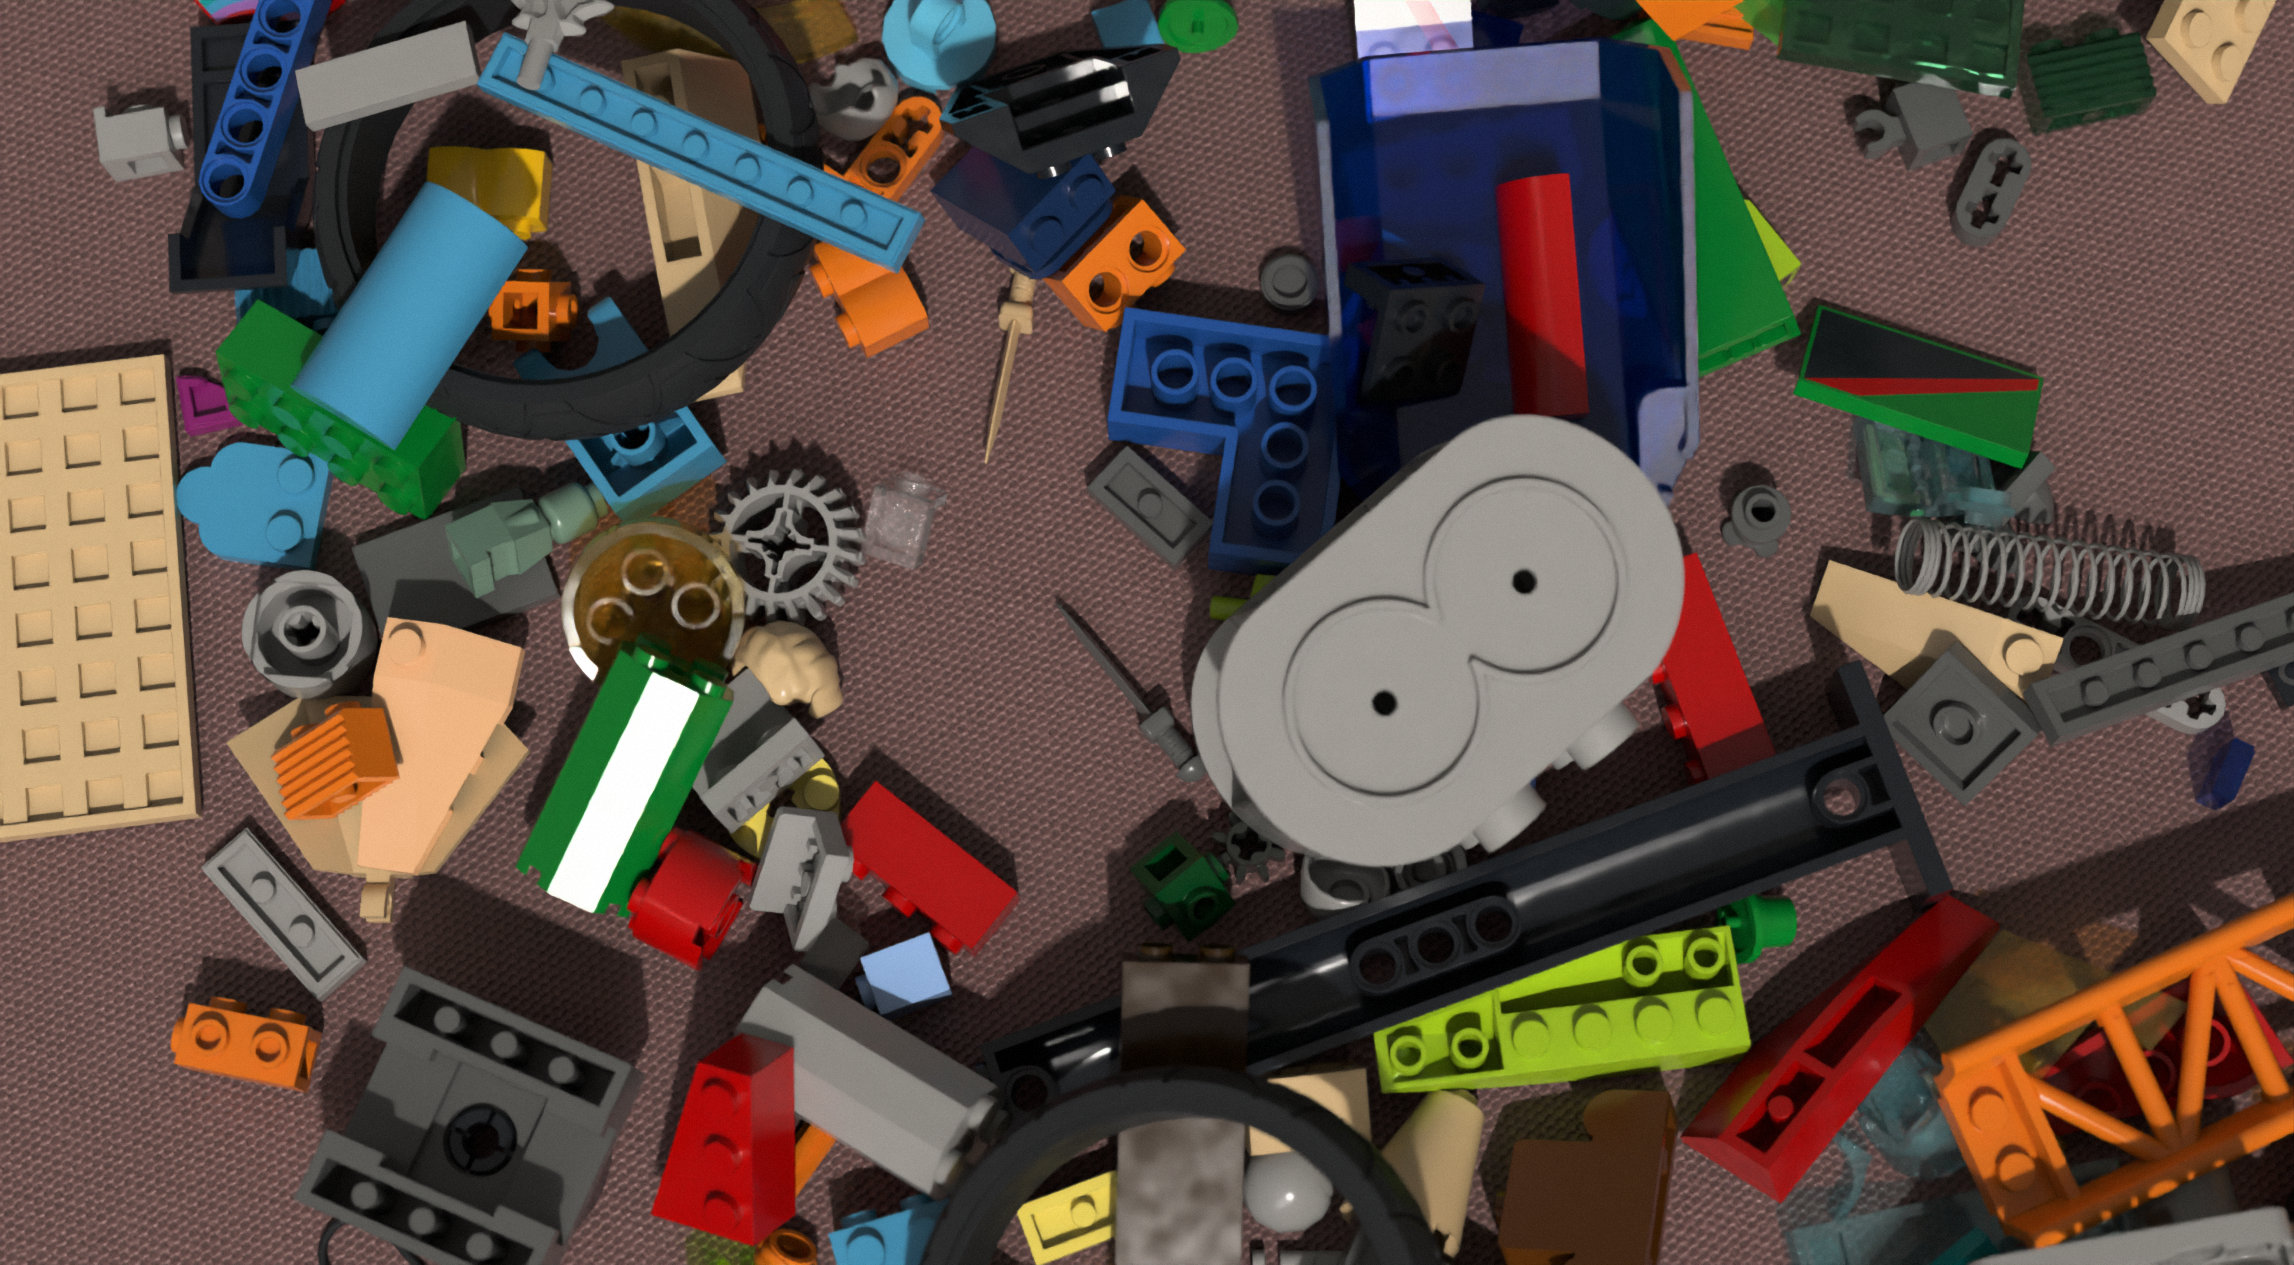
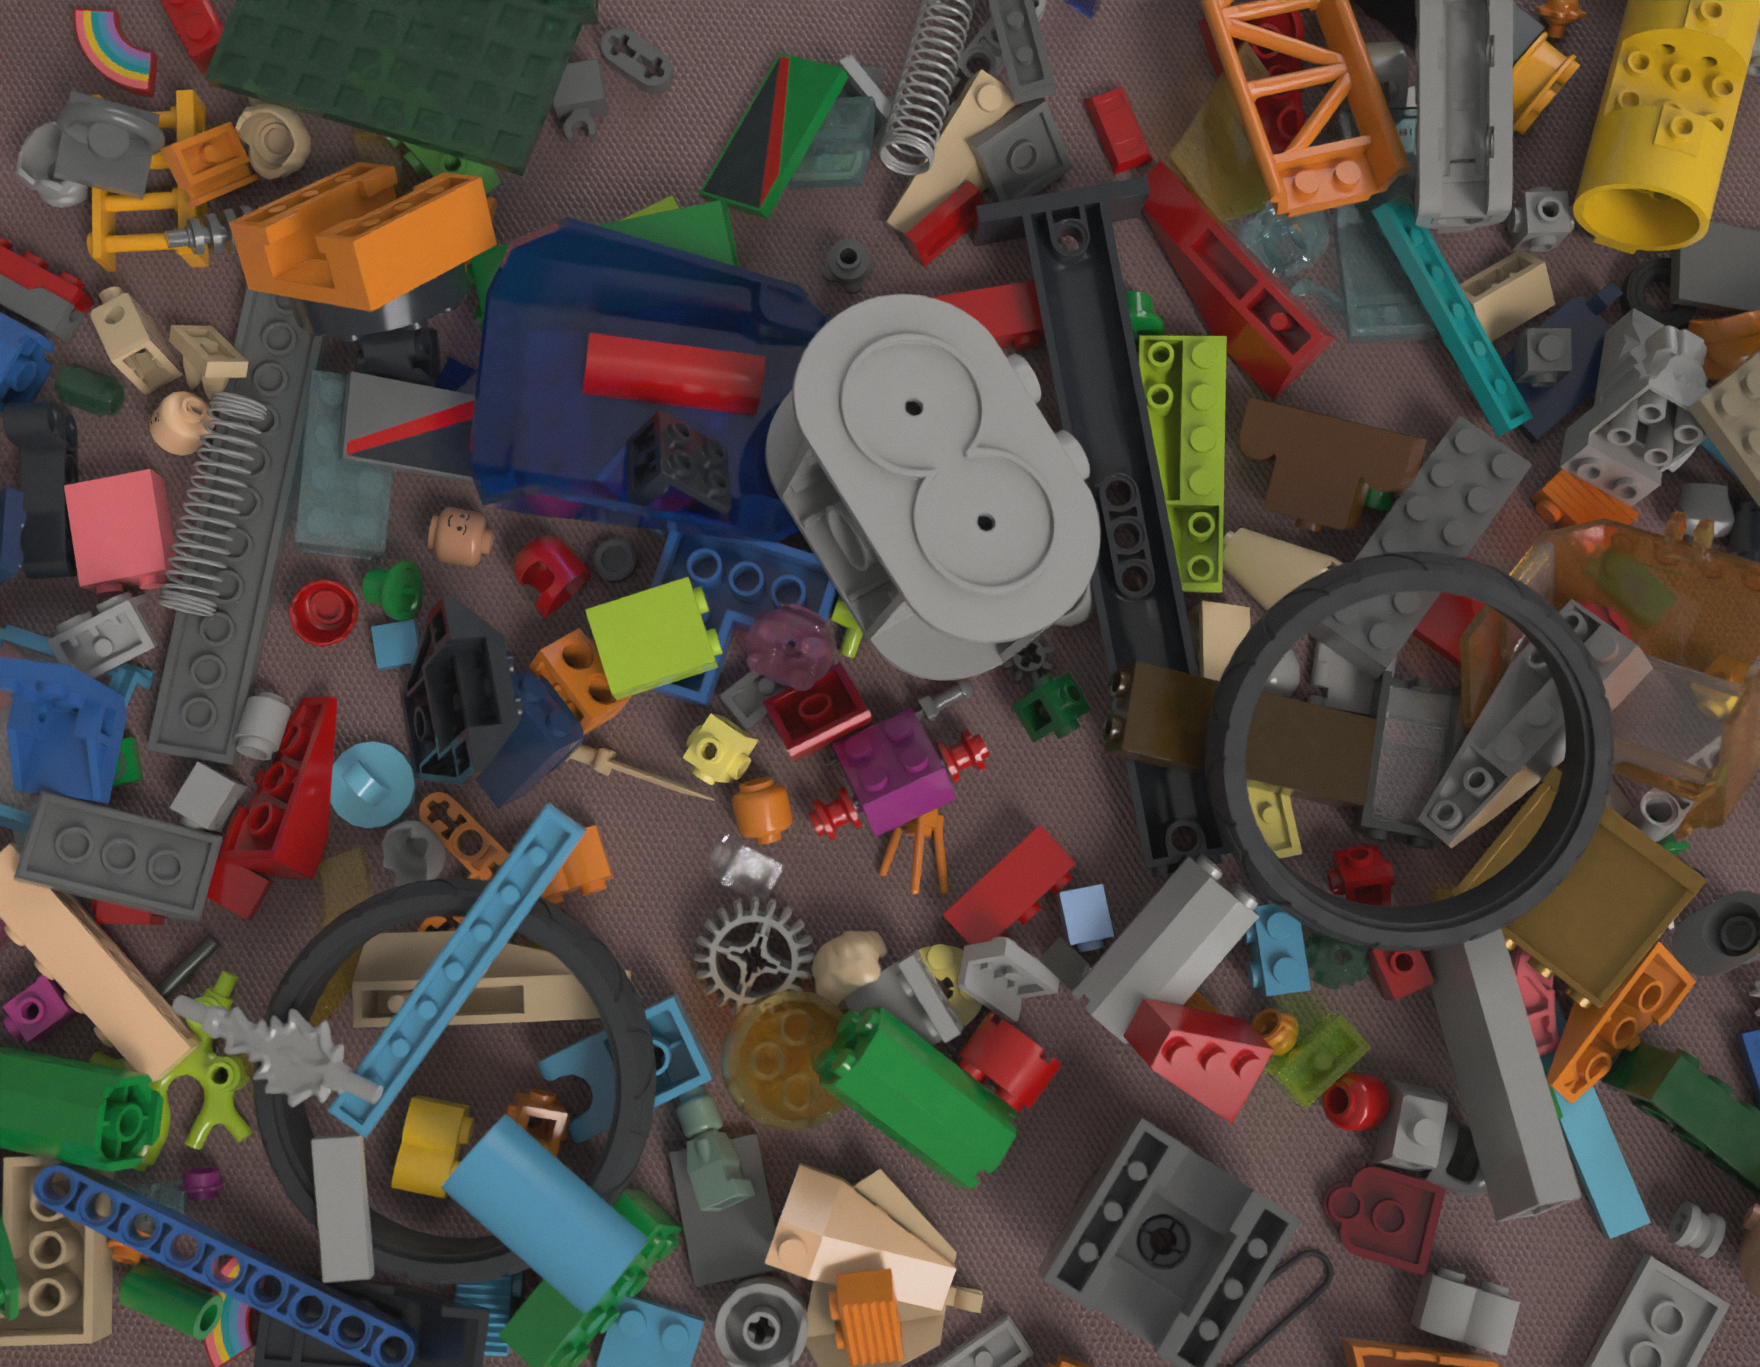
camera: 85 degrees left, 5 degrees up
(982, 527) = (762, 810): none -> orange head
(1000, 734) = (919, 829): none -> orange plant
(1053, 457) = (719, 750): none -> light yellow brick
(1055, 690) = (895, 775): none -> magenta brick
(1121, 572) = (819, 715): none -> red slope
(1176, 532) = (784, 666): none -> clear pink plate
(1179, 335) = (654, 637): none -> lime brick
(1261, 206) = (552, 570): none -> red helmet
(1279, 79) = (460, 536): none -> nougat head
(1841, 636) = (944, 224): none -> red tile
(1985, 506) = (878, 101): clear light blue plate -> none
(2036, 864) = (1118, 130): none -> red tile

